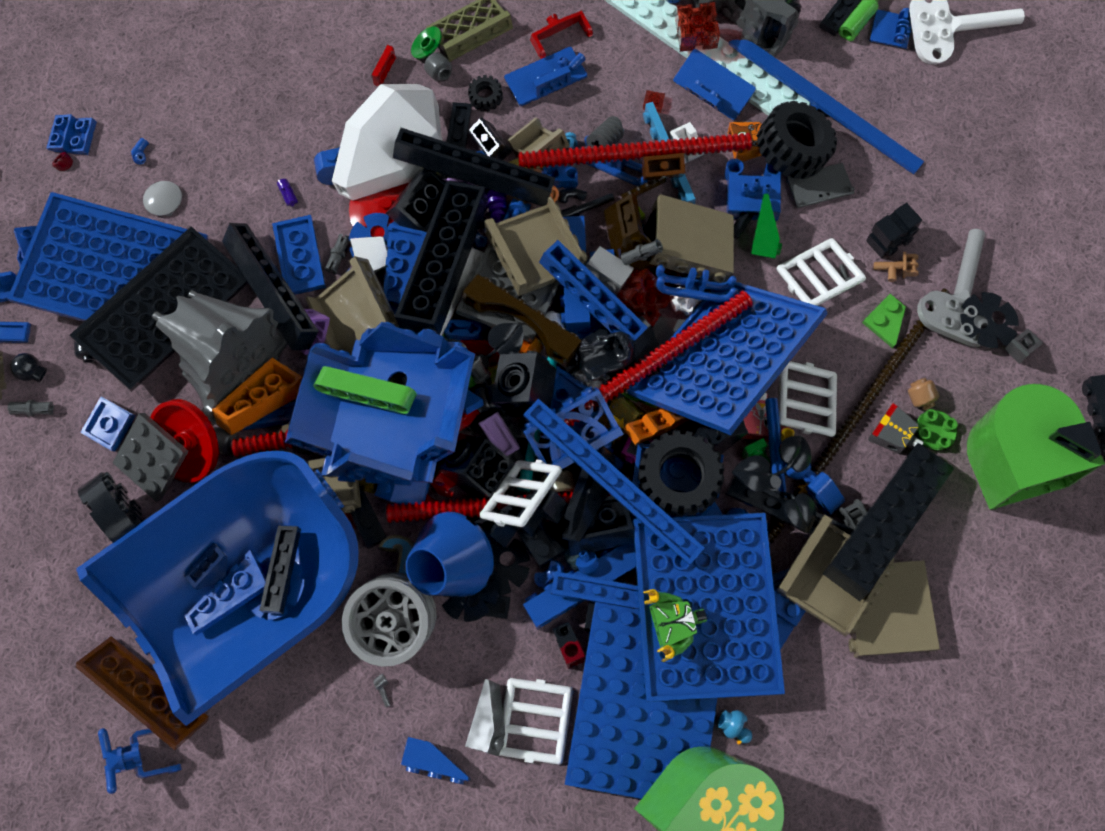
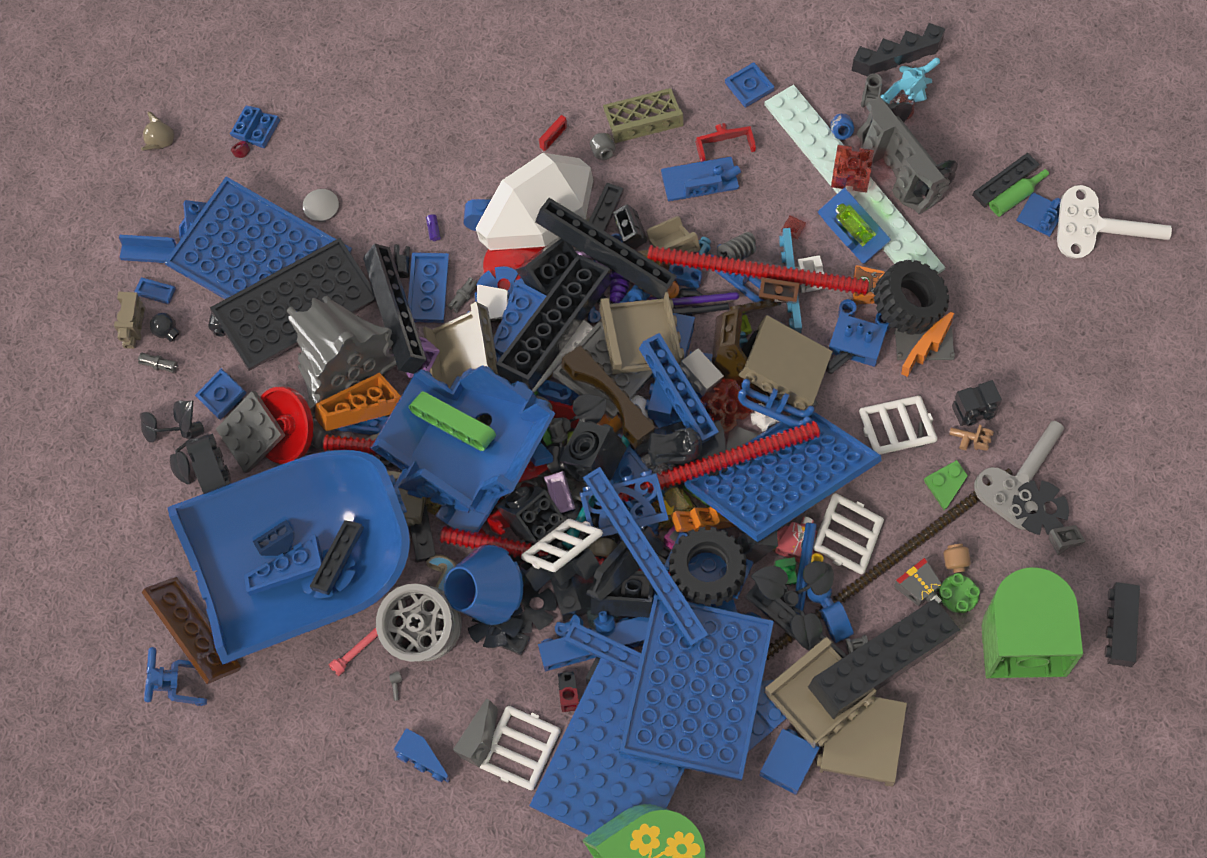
camera: 15 degrees right, 5 degrees down
(69, 460) = (183, 415): none -> black plant
(138, 151) = (309, 157): blue arm -> none
(264, 235) = (402, 261): none -> black hinge
(315, 685) = (340, 664): none -> coral piece
(426, 42) = (598, 121): green dish -> none
(485, 83) = (639, 171): black tyre -> none
(587, 195) = (703, 299): none -> dark purple piece
(642, 252) = (732, 363): dark grey pin -> none
(673, 622) = (661, 689): bright green torso -> none
(717, 80) = (854, 224): none -> clear neon green torso
(732, 726) = (690, 797): dark azure animal -> none
(766, 235) = (857, 376): green slope -> none
(822, 656) = (789, 761): none -> blue panel
(827, 104) = (954, 270): blue piece -> none
(828, 180) = (929, 341): none -> orange slope
(1079, 440) = (1062, 624): black slope -> none

